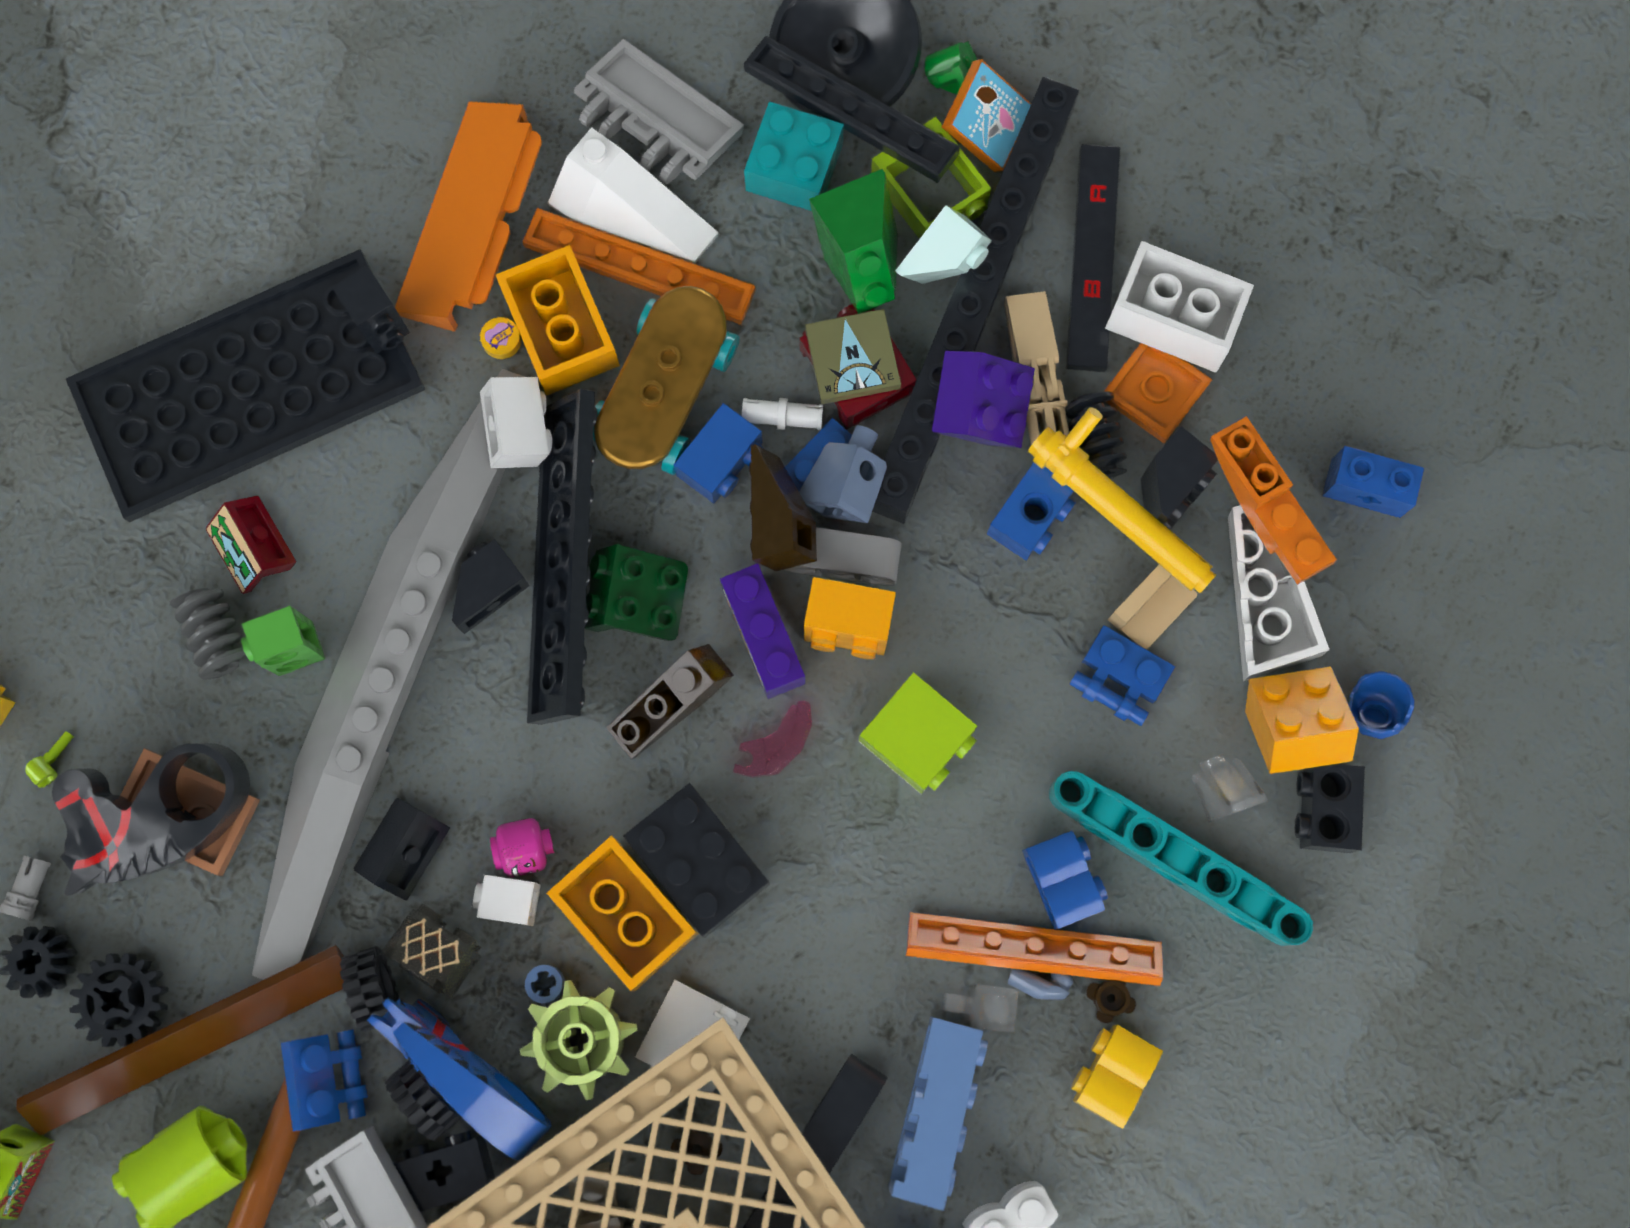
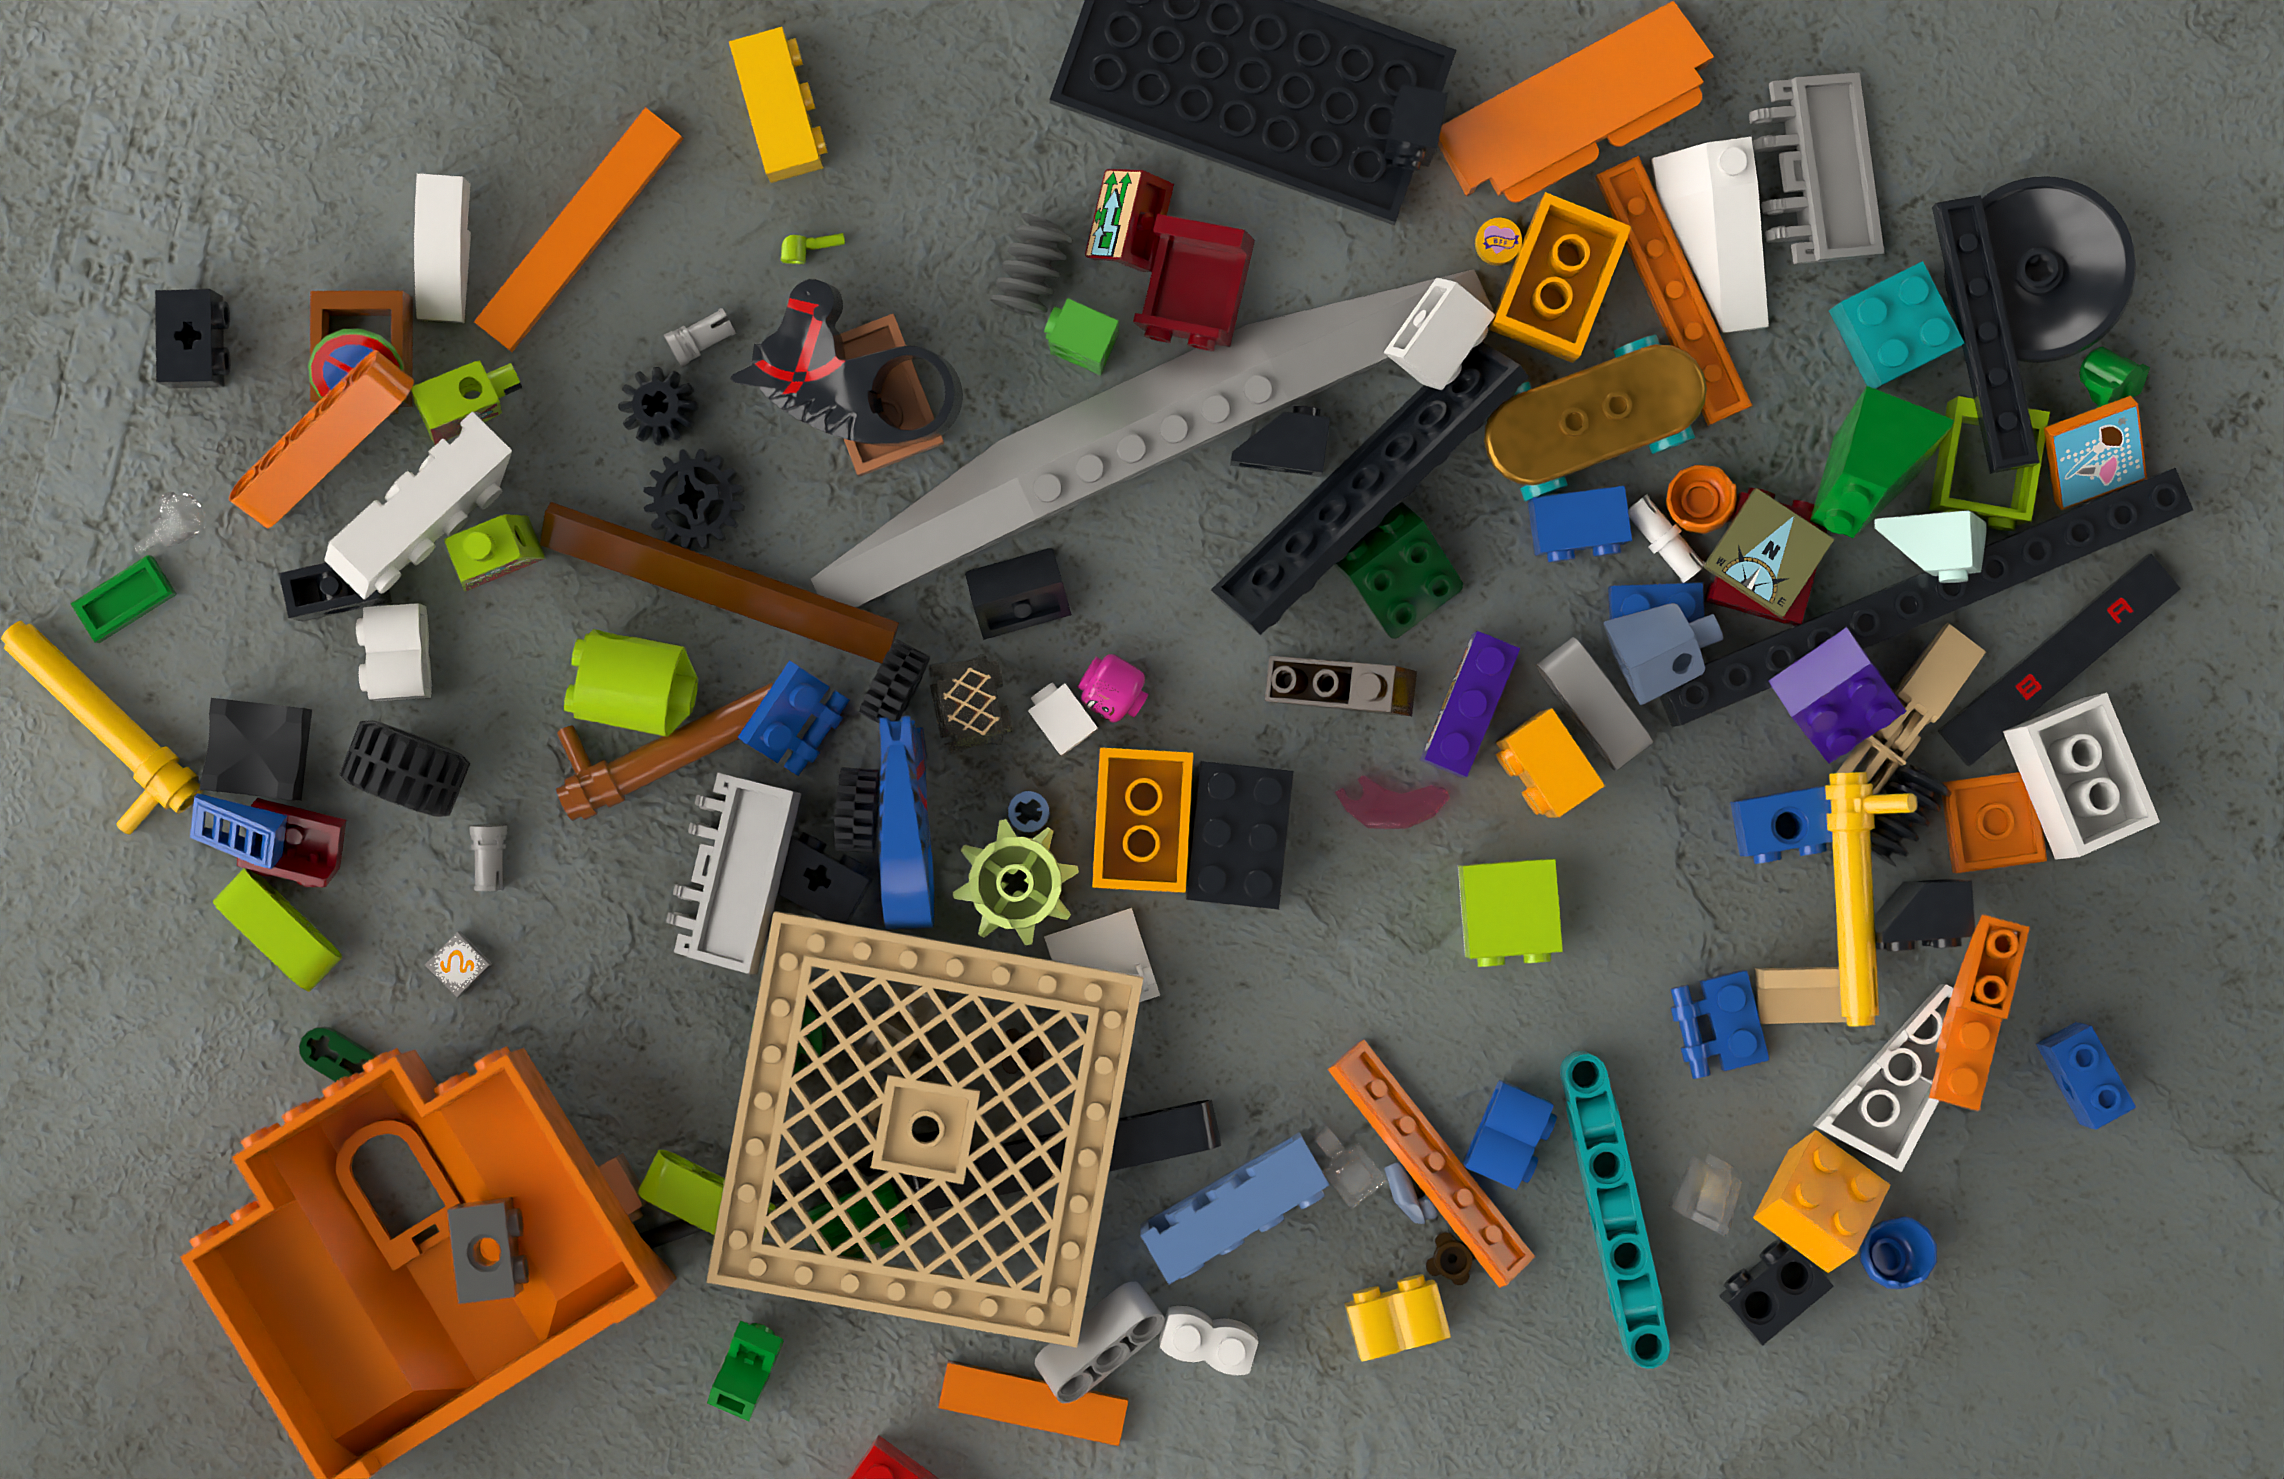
camera: 40 degrees right, 10 degrees up
(327, 539) = (1195, 282): none -> dark red panel
(780, 367) = (1701, 498): none -> orange hair
(780, 519) = (1575, 630): dark brown slope -> none

